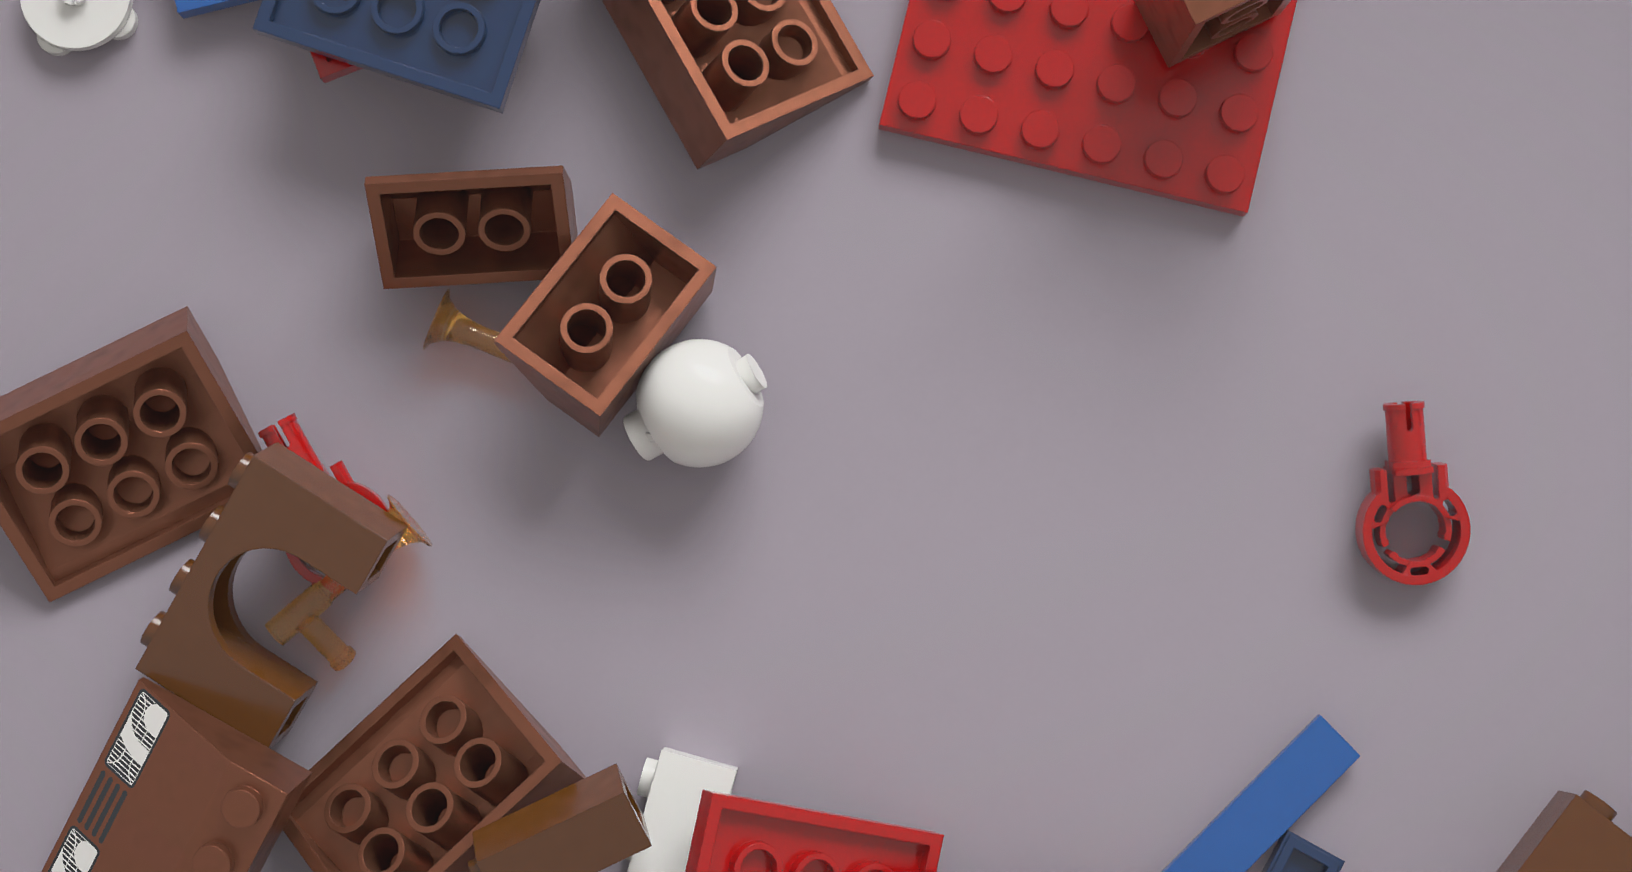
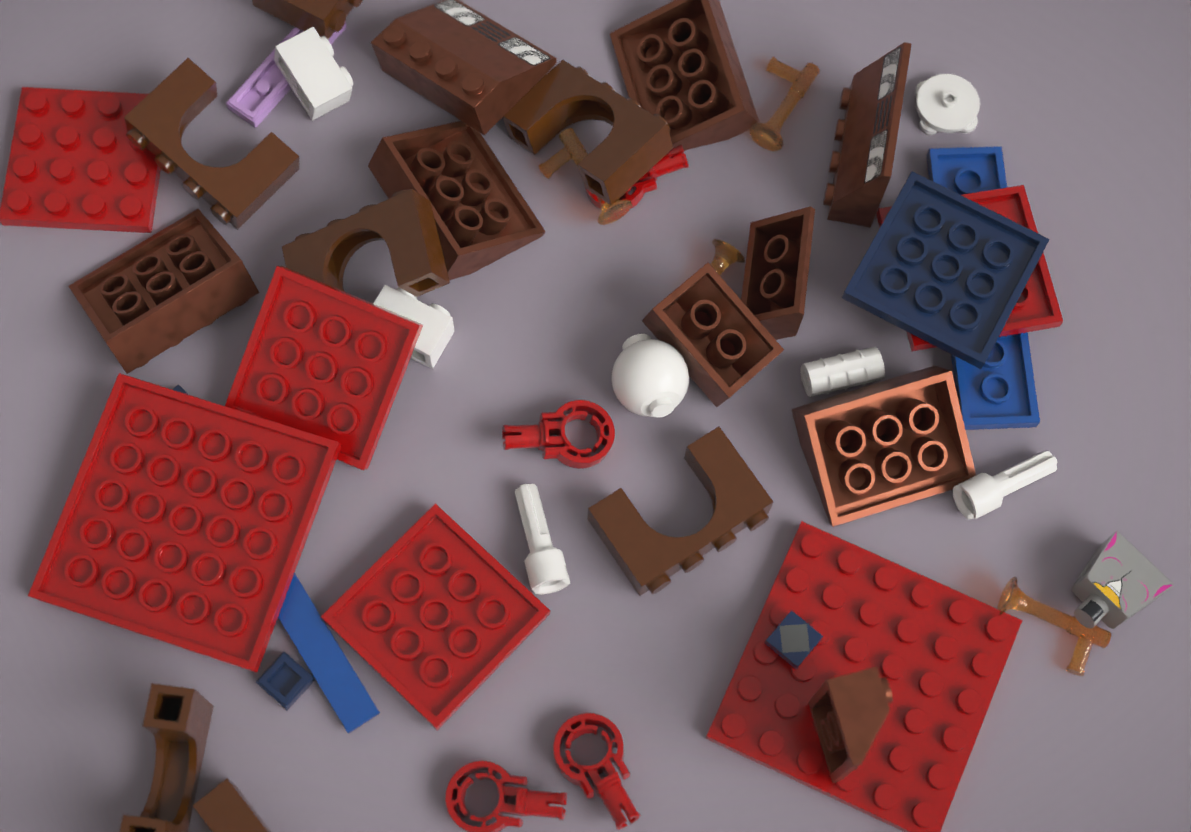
camera: 100 degrees right, 15 degrees down
(188, 113) = (867, 139): none -> copper slope
(197, 287) = (768, 134): none -> clear orange piece
(613, 98) = (842, 371): none -> white axle
(828, 565) = (559, 446): none -> red pin
(876, 231) = (653, 557): none -> reddish brown arch
(1038, 509) = (544, 563): none -> white piece
(1081, 103) = (793, 639): none -> tile
(1153, 663) = (436, 616): none -> red plate
(1361, 337) = (609, 788): none -> red pin

